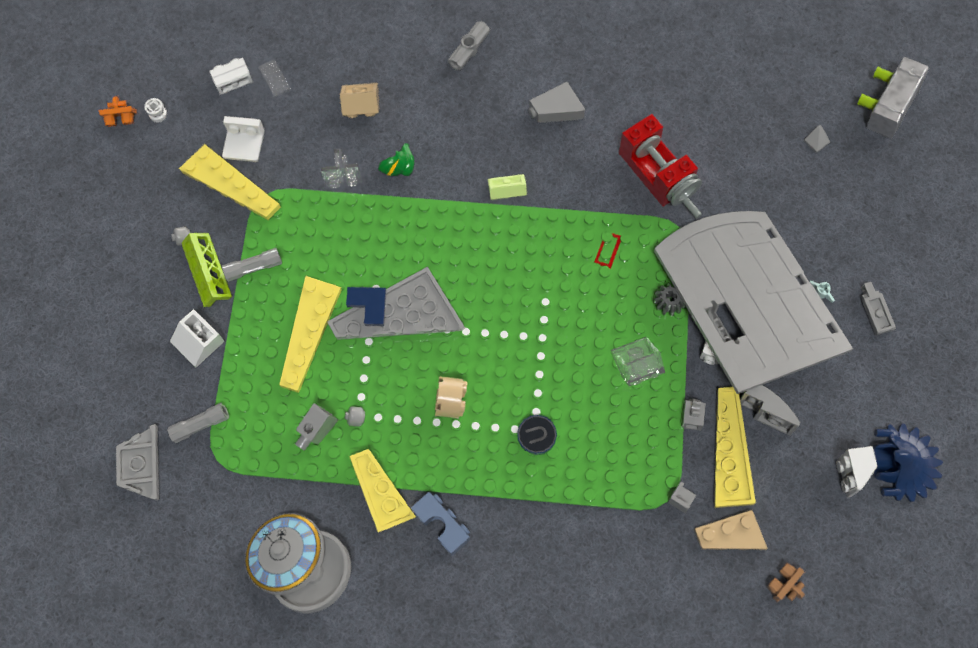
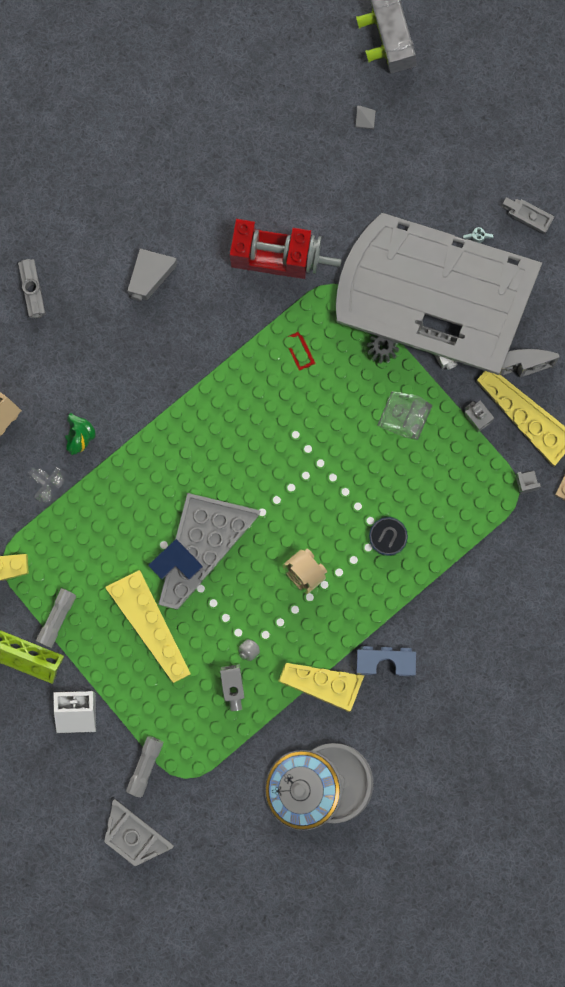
camera: 45 degrees left, 10 degrees up
(507, 186) = (177, 373): yellowish green slope -> none

